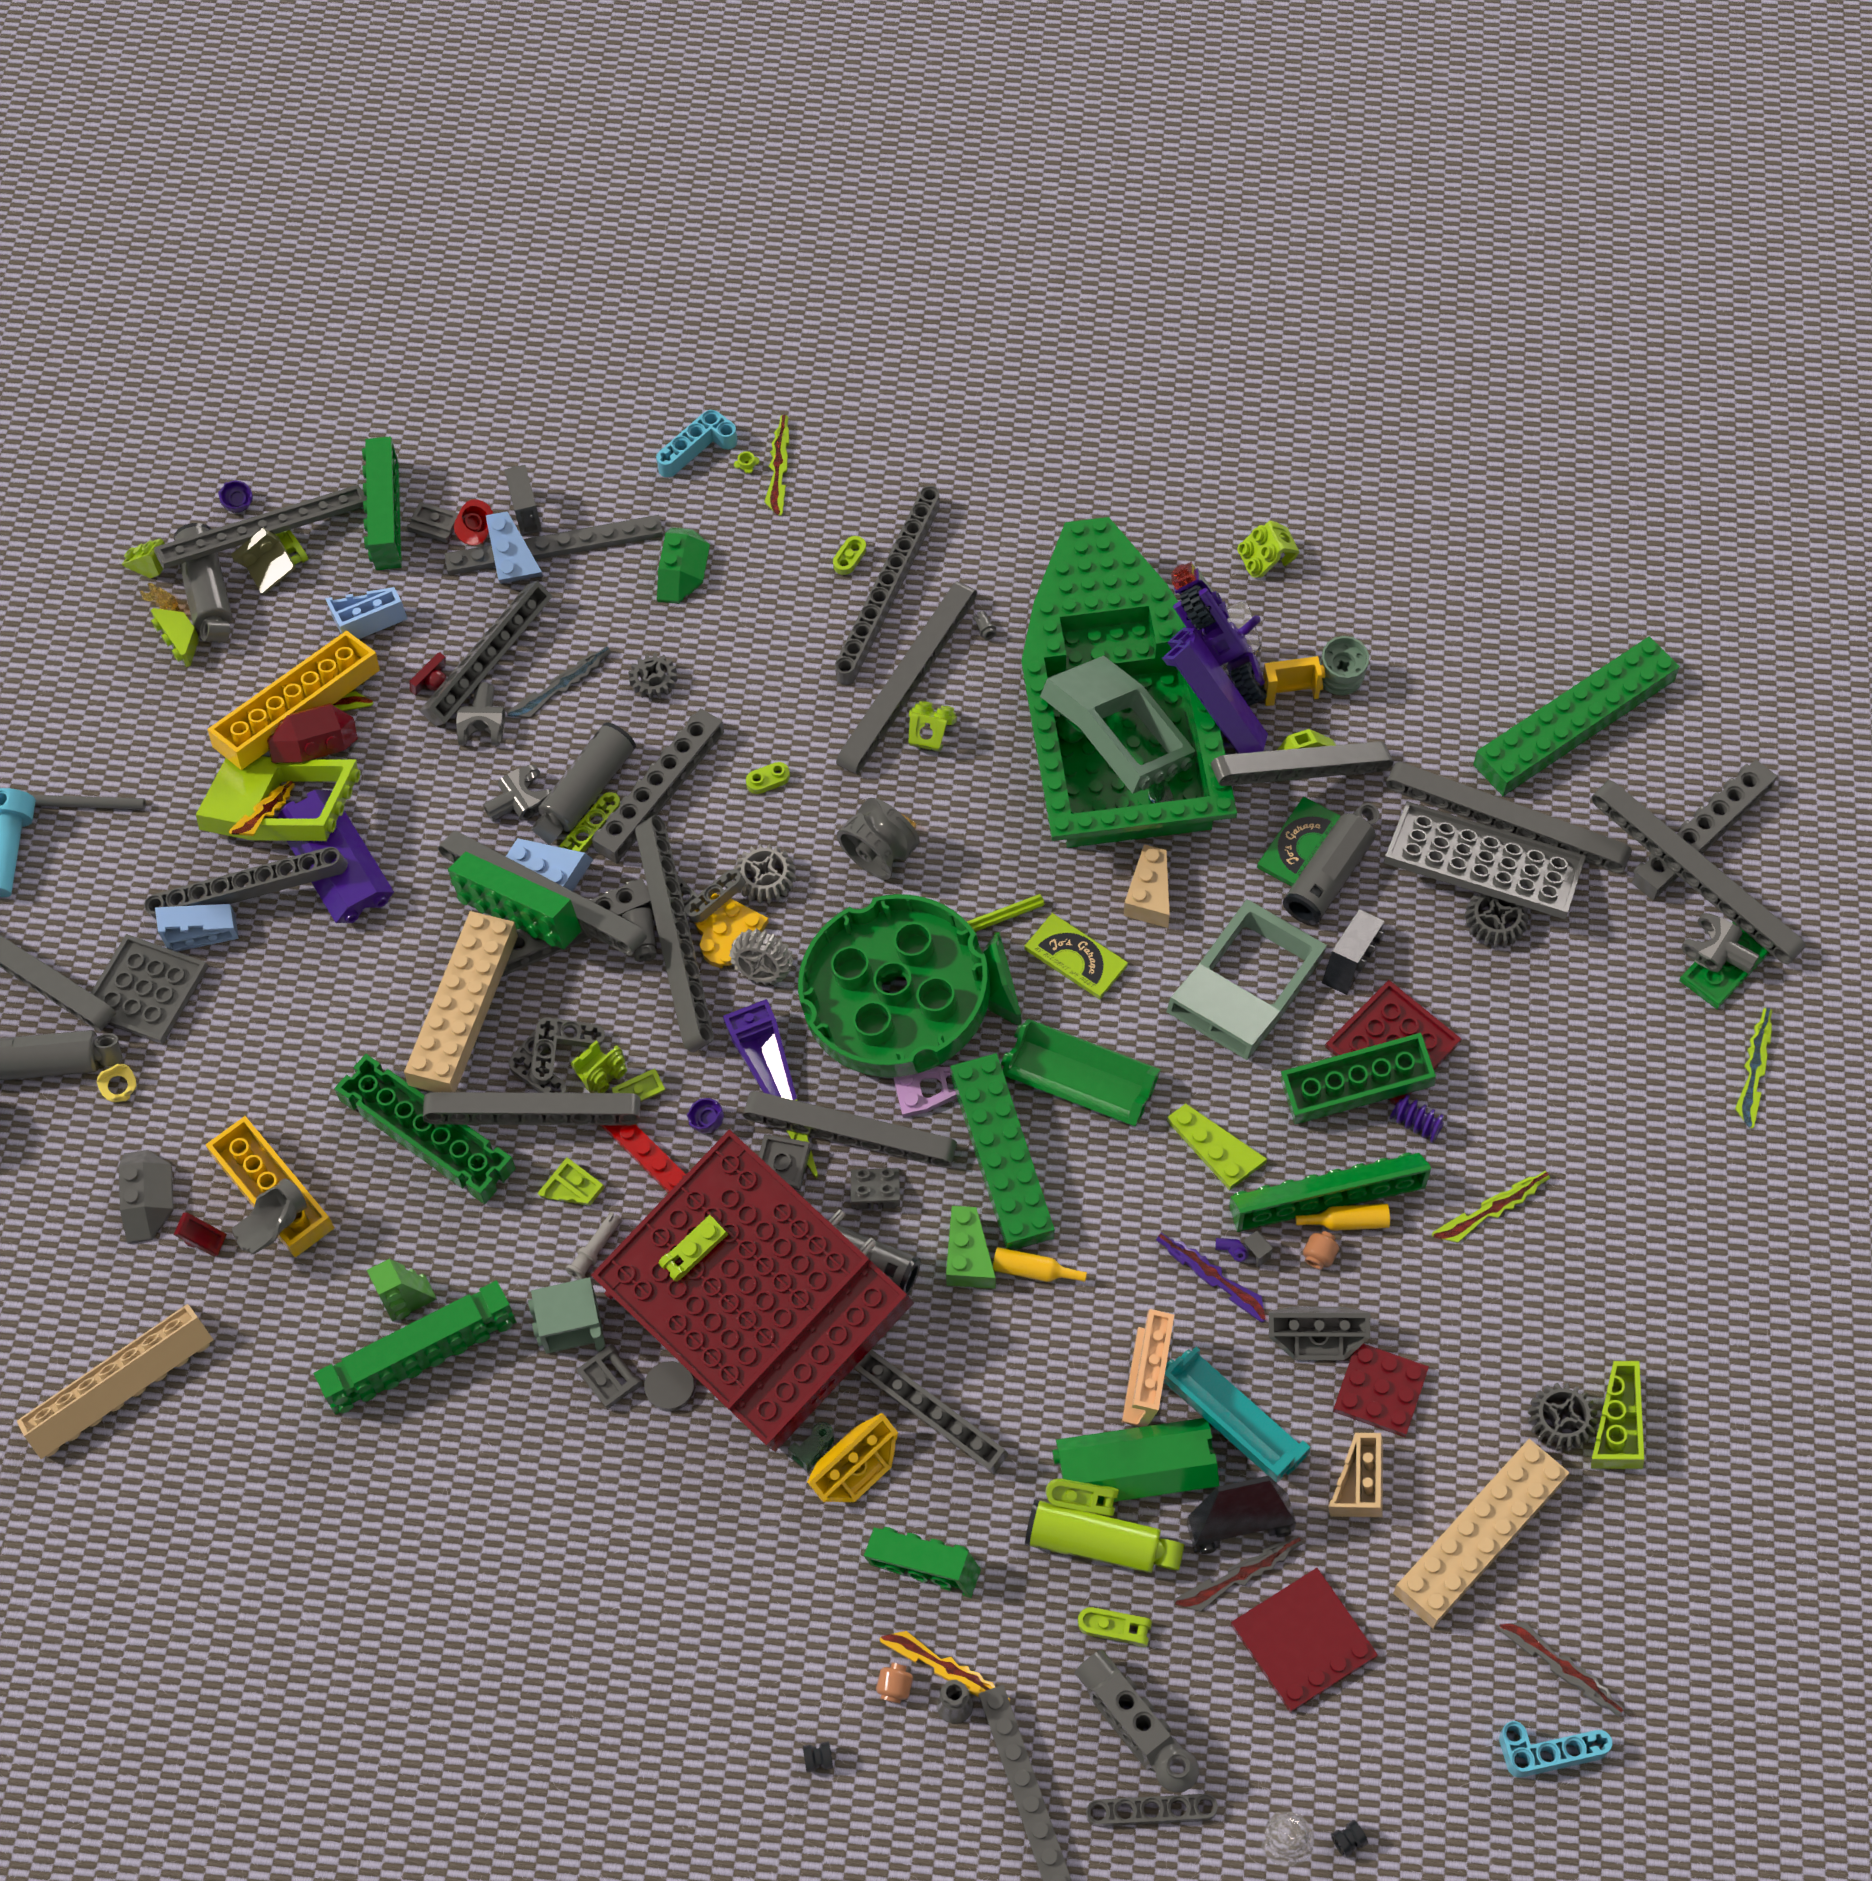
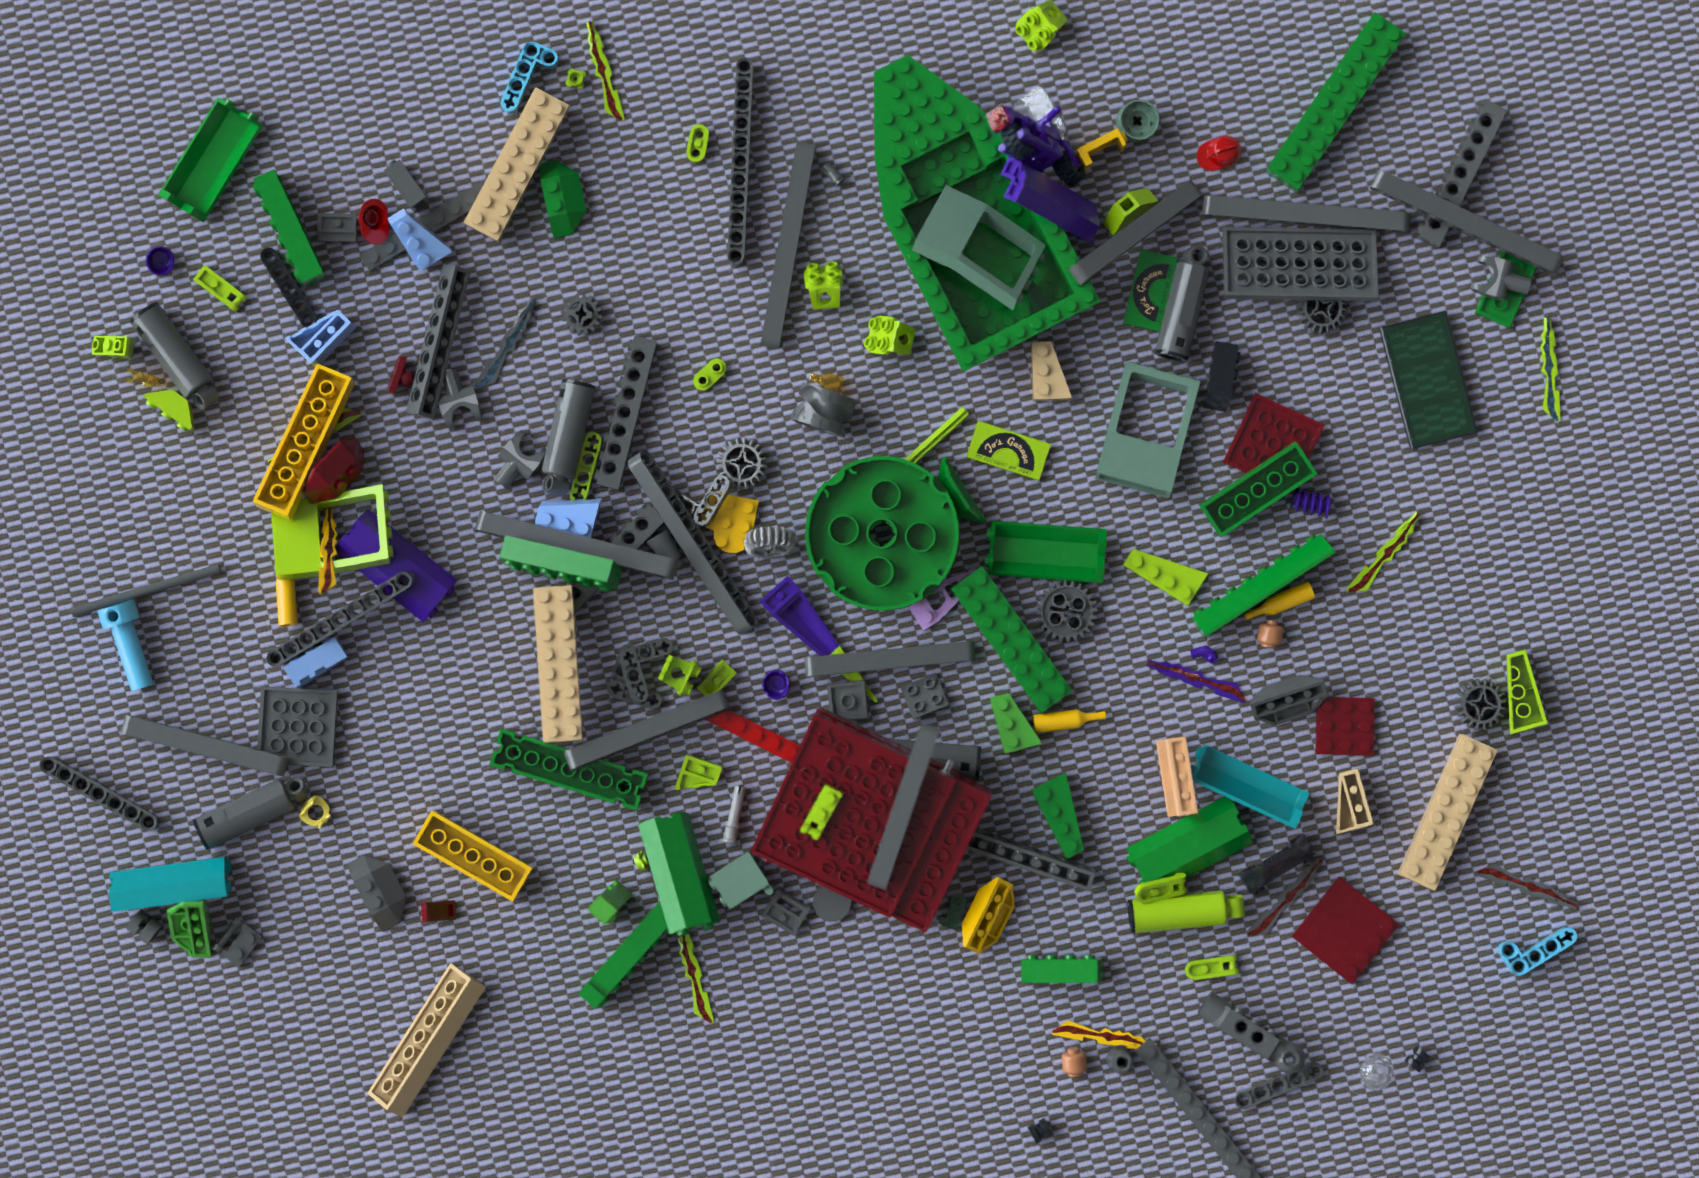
camera: 25 degrees left, 25 degrees up
(197, 857) = (286, 603): none -> yellow piece
(264, 559) = (217, 316): olive bracket -> none
(271, 1214) = (490, 888): dark grey hair -> none
(274, 521) = (201, 289): dark grey plate -> none
(334, 422) = (211, 159): none -> green panel
(353, 555) = (286, 279): none -> black beam
(463, 1260) = (641, 861): none -> lime plate
(467, 1412) = (693, 972): none -> lime sword
(498, 1280) = (679, 873): none -> green panel
(646, 513) = (516, 164): none -> tan brick
(793, 1268) = (903, 806): none -> dark grey beam
(979, 792) = (885, 336): none -> lime piece
(987, 1366) = (1058, 809): none -> green wedge
(1068, 1162) = (1069, 594): none -> dark grey gear
(1260, 1247) = (1224, 649): dark grey slope -> none
(1426, 730) = (1218, 153): none -> red piece
(1602, 1032) = (1428, 380): none -> clear green door

